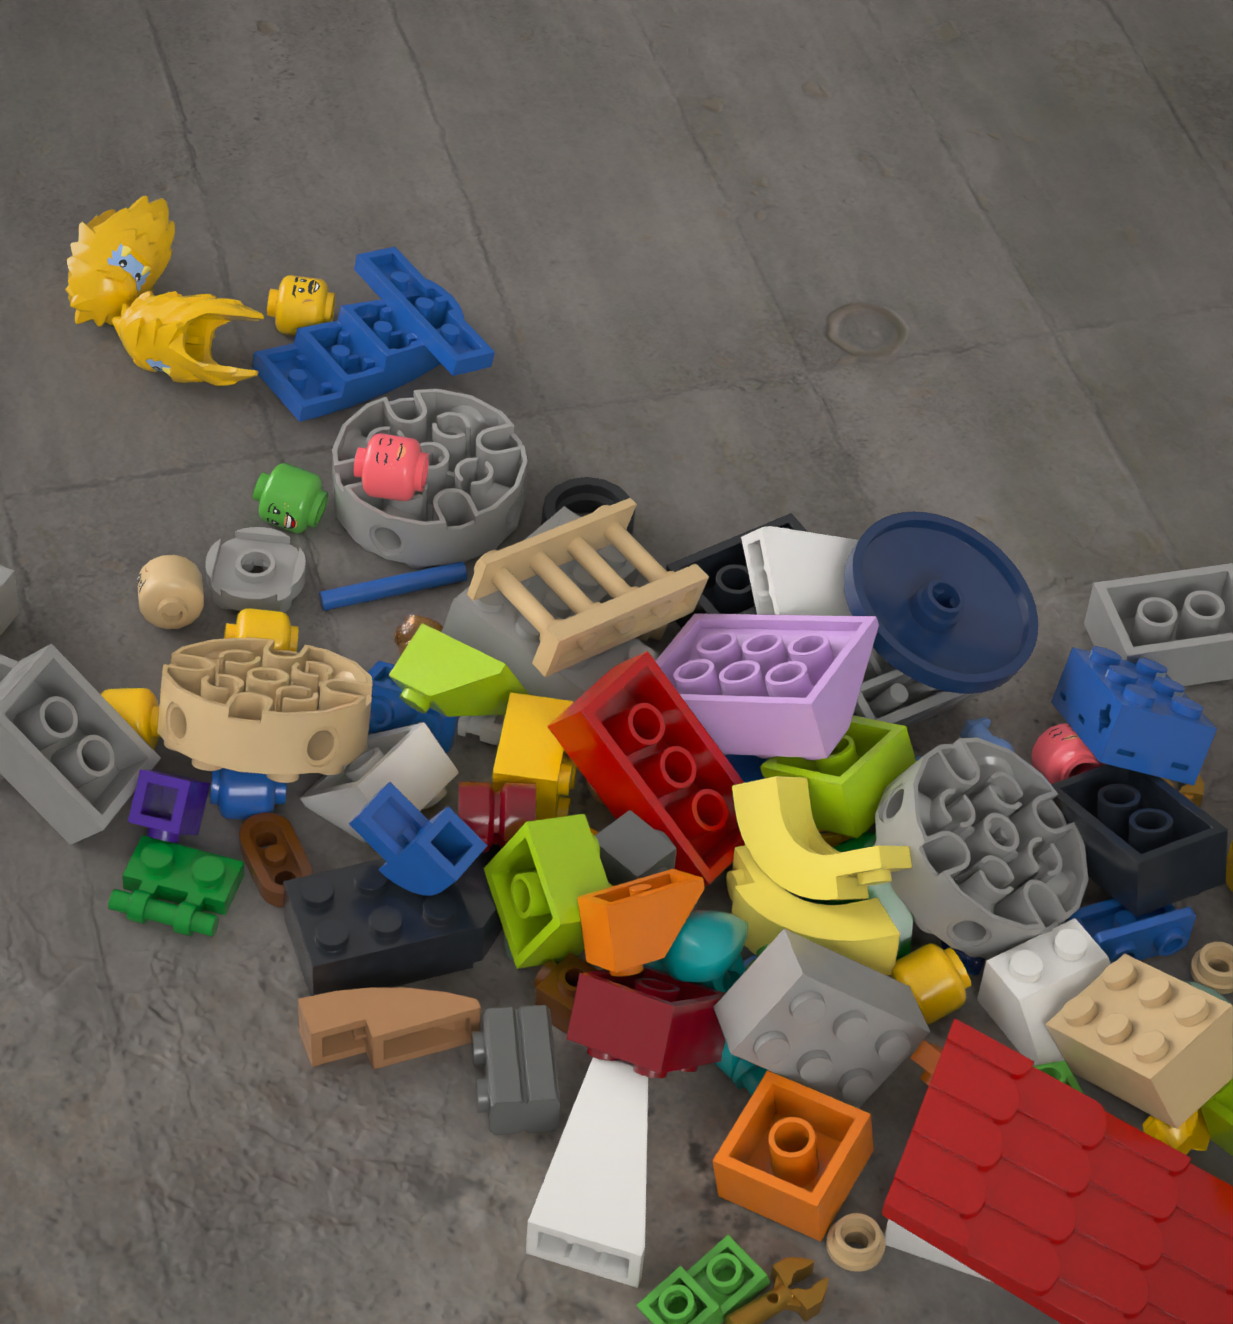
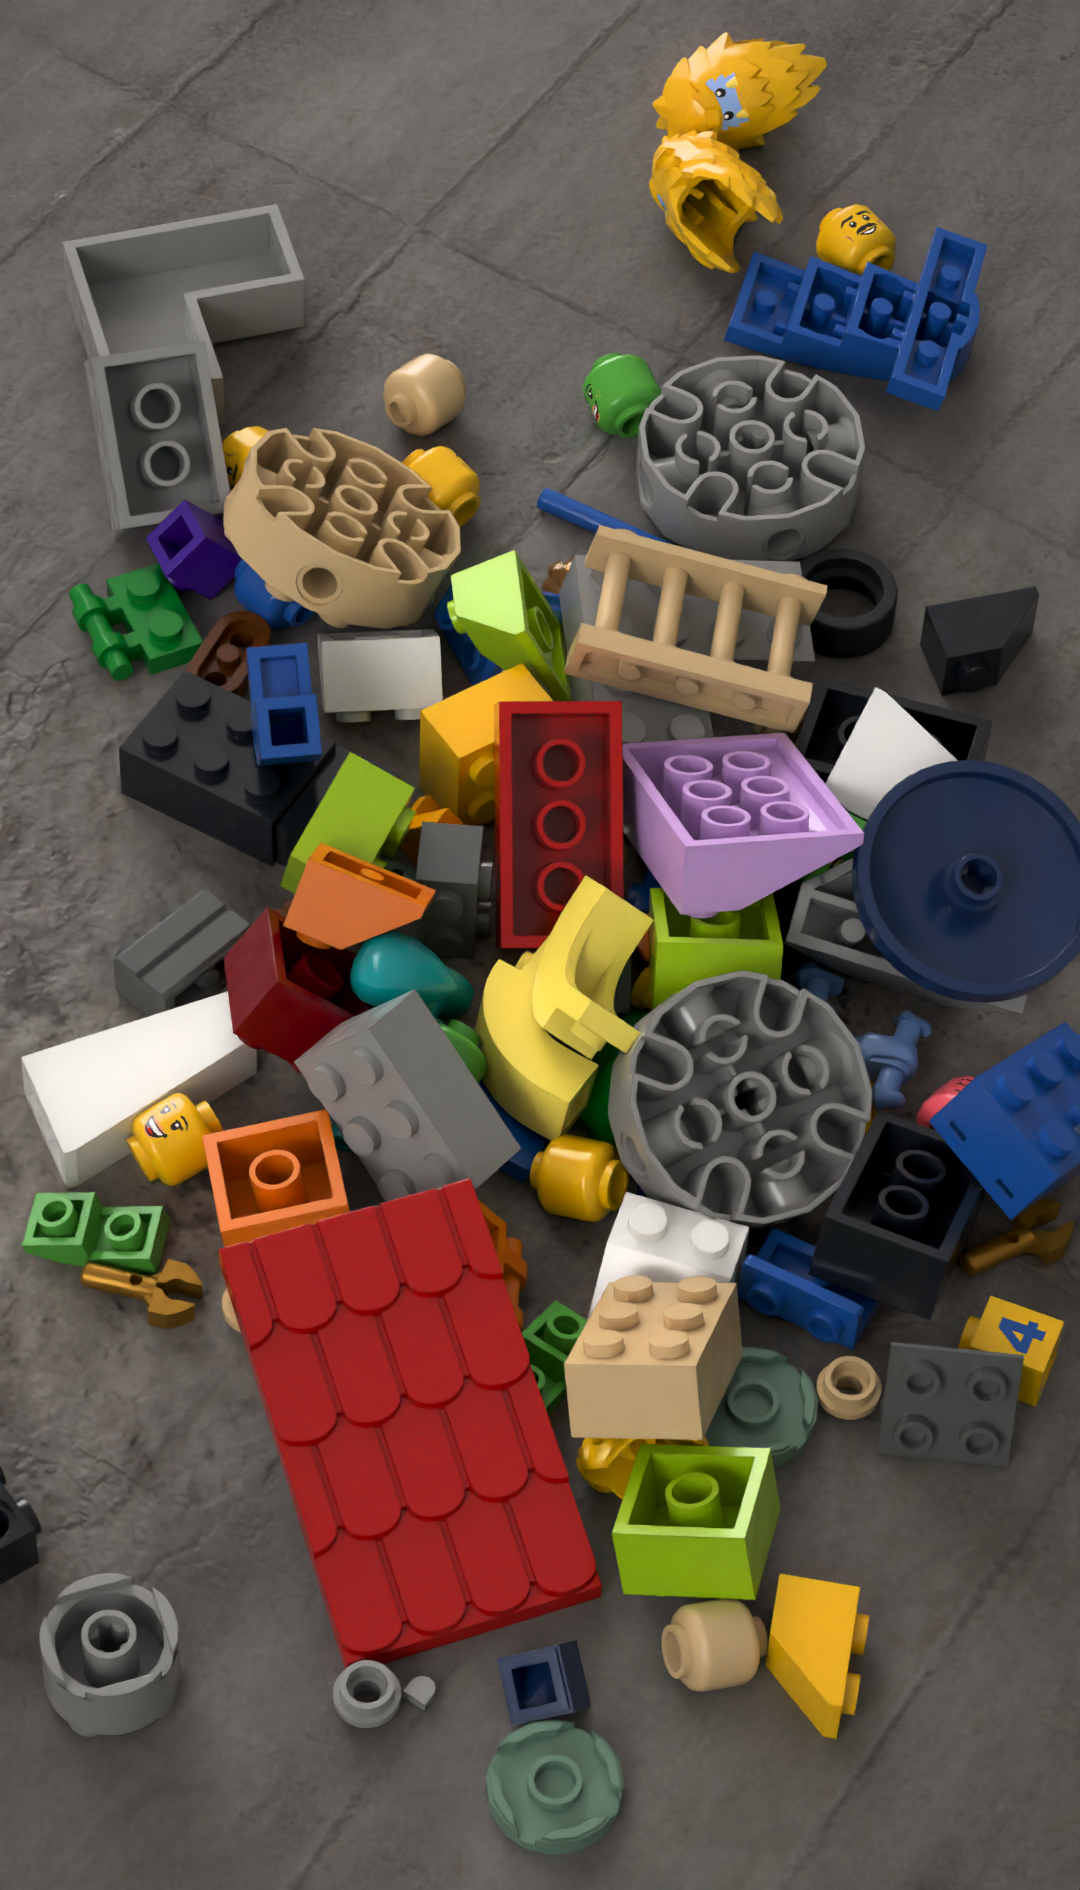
camera: 50 degrees right, 5 degrees up
(270, 590) = (519, 456): light grey plate -> none
(385, 1024) = (130, 837): medium nougat slope -> none
(392, 467) = (687, 416): coral head -> none
(496, 813) = (388, 740): dark red wheel -> none
(678, 1186) = (170, 1139): none -> yellow head
(690, 484) = (977, 638): none -> black slope

